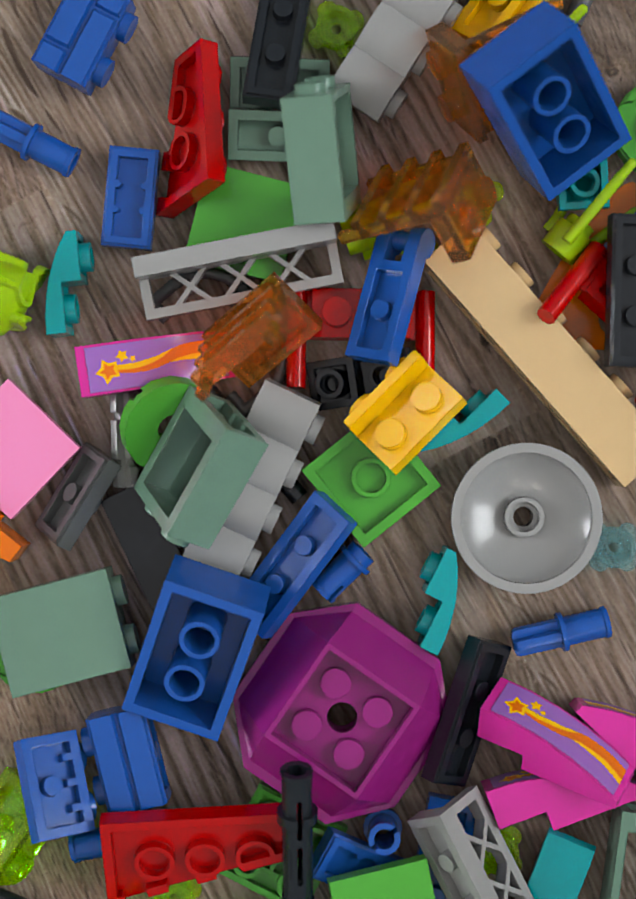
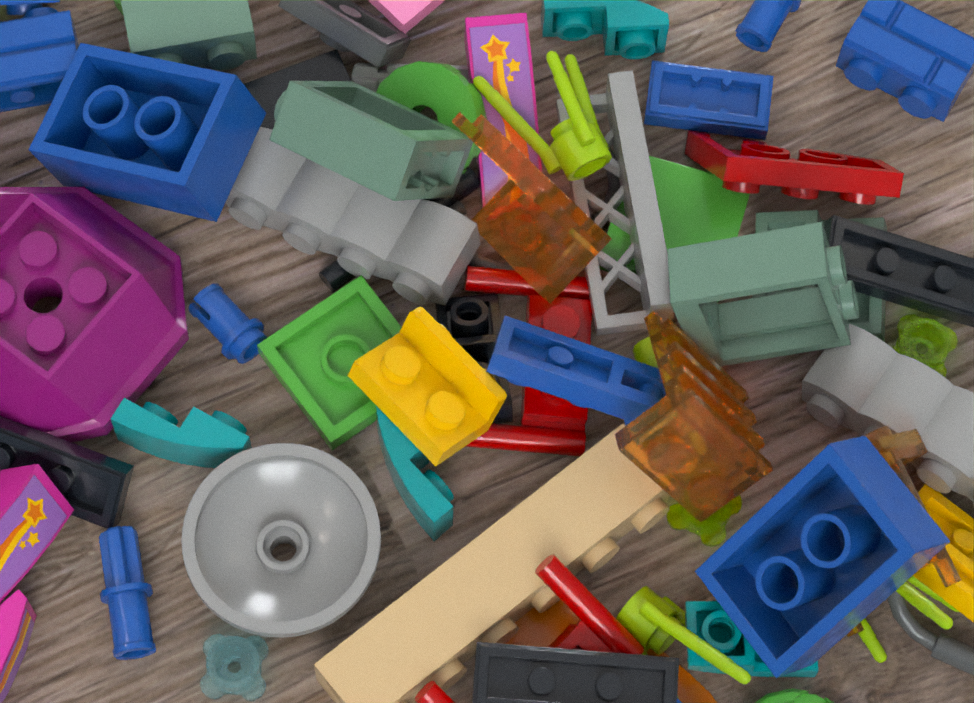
camera: 90 degrees right, 20 degrees down
(191, 299) = (578, 141): none -> lime plant
(301, 557) = (246, 263): blue plate -> none

